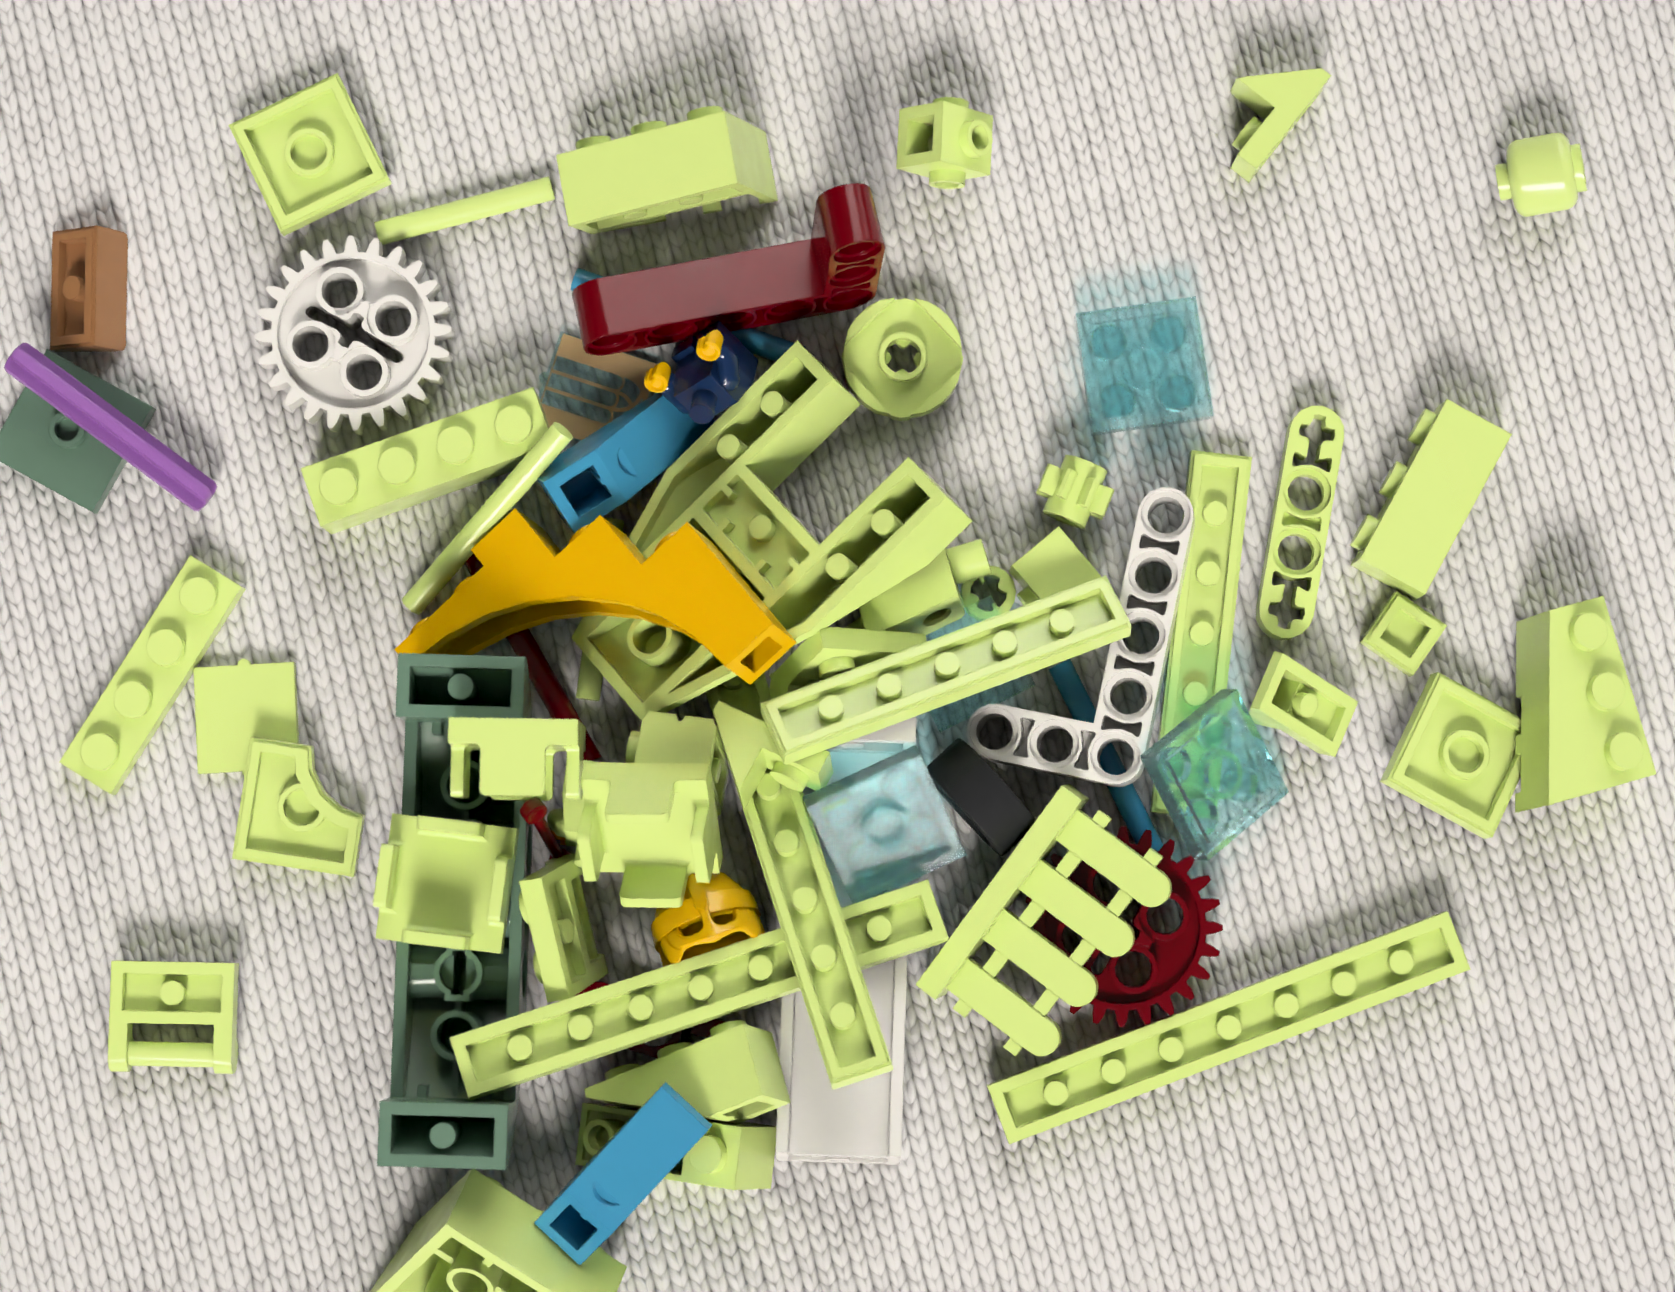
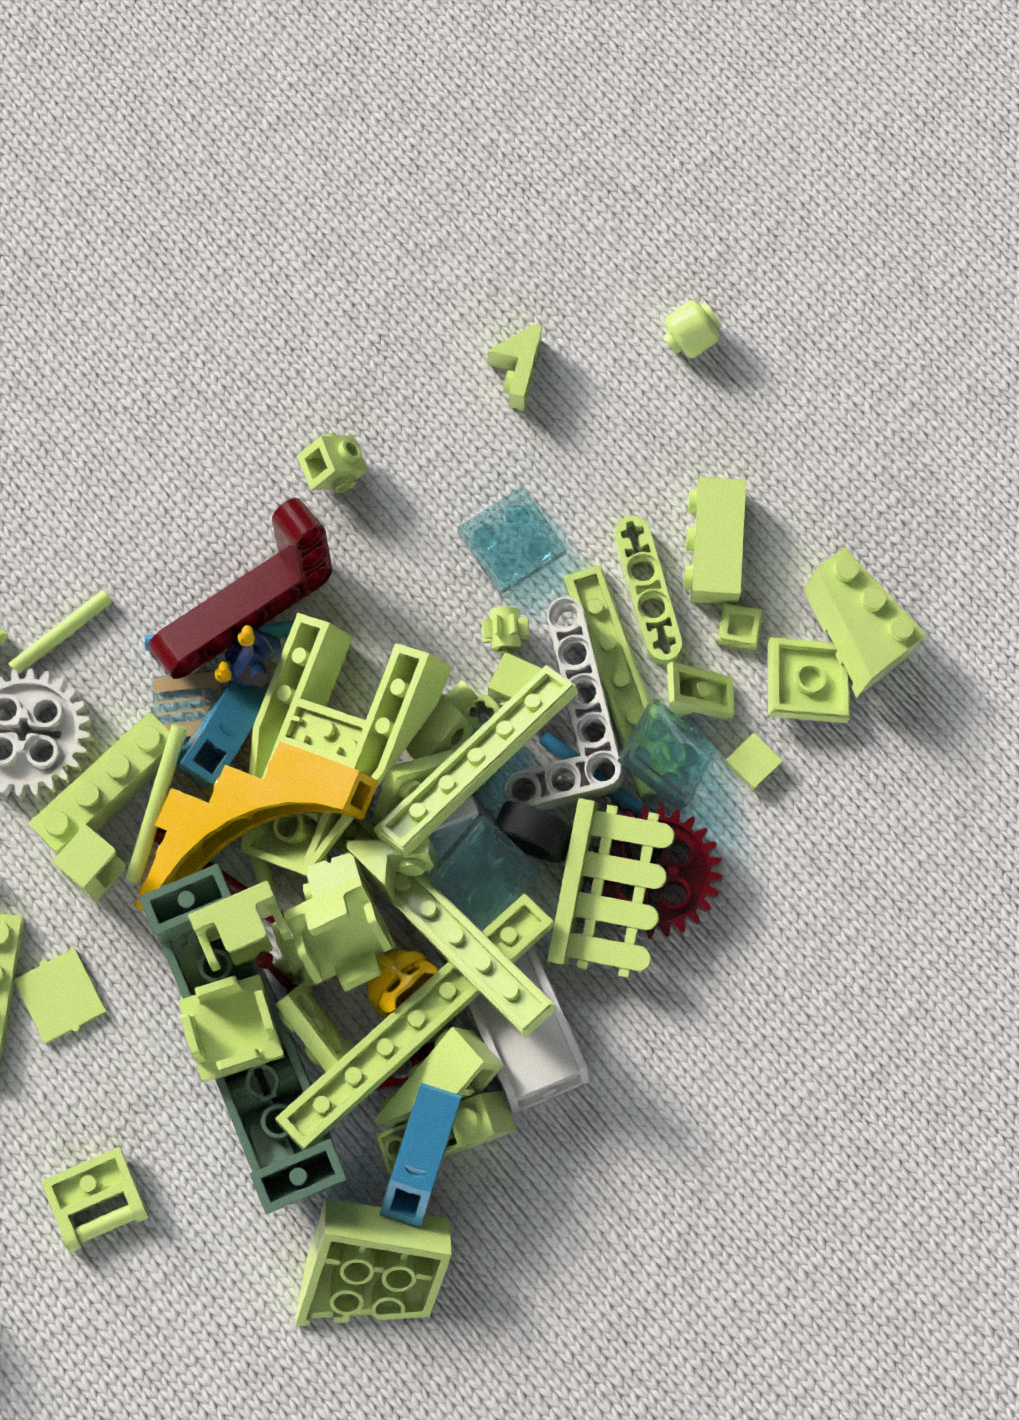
camera: 25 degrees left, 10 degrees down
(290, 816) = (114, 1042): yellowish green tile -> none
(360, 562) = (90, 863): none -> yellowish green panel
(664, 171) = (171, 553): yellowish green wedge -> none
(902, 323) = (355, 580): yellowish green plate -> none
(1228, 1027) = (746, 905): yellowish green plate -> none
(1330, 832) = (753, 761): none -> yellowish green tile

